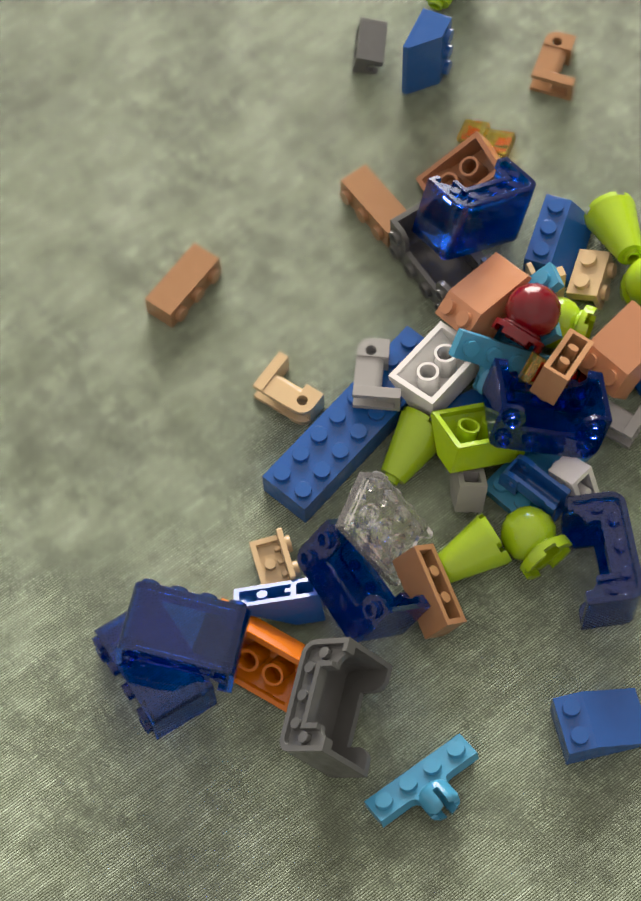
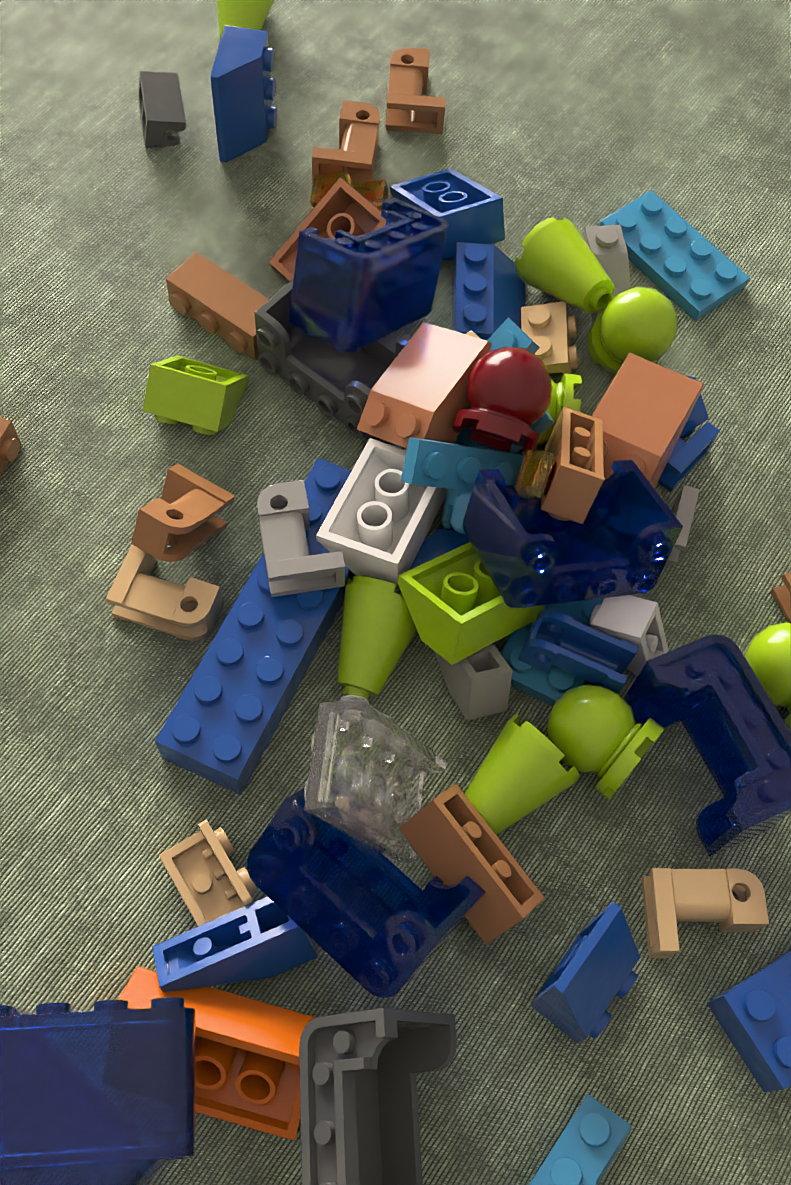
camera: 25 degrees left, 0 degrees up
(312, 344) = (182, 516): none -> medium nougat piece
(340, 263) = (193, 393): none -> lime slope
(477, 666) = (590, 976): none -> blue slope
(503, 103) = (358, 143): none -> medium nougat piece
(554, 165) = (468, 207): none -> blue slope
(564, 648) = (700, 895): none -> tan piece

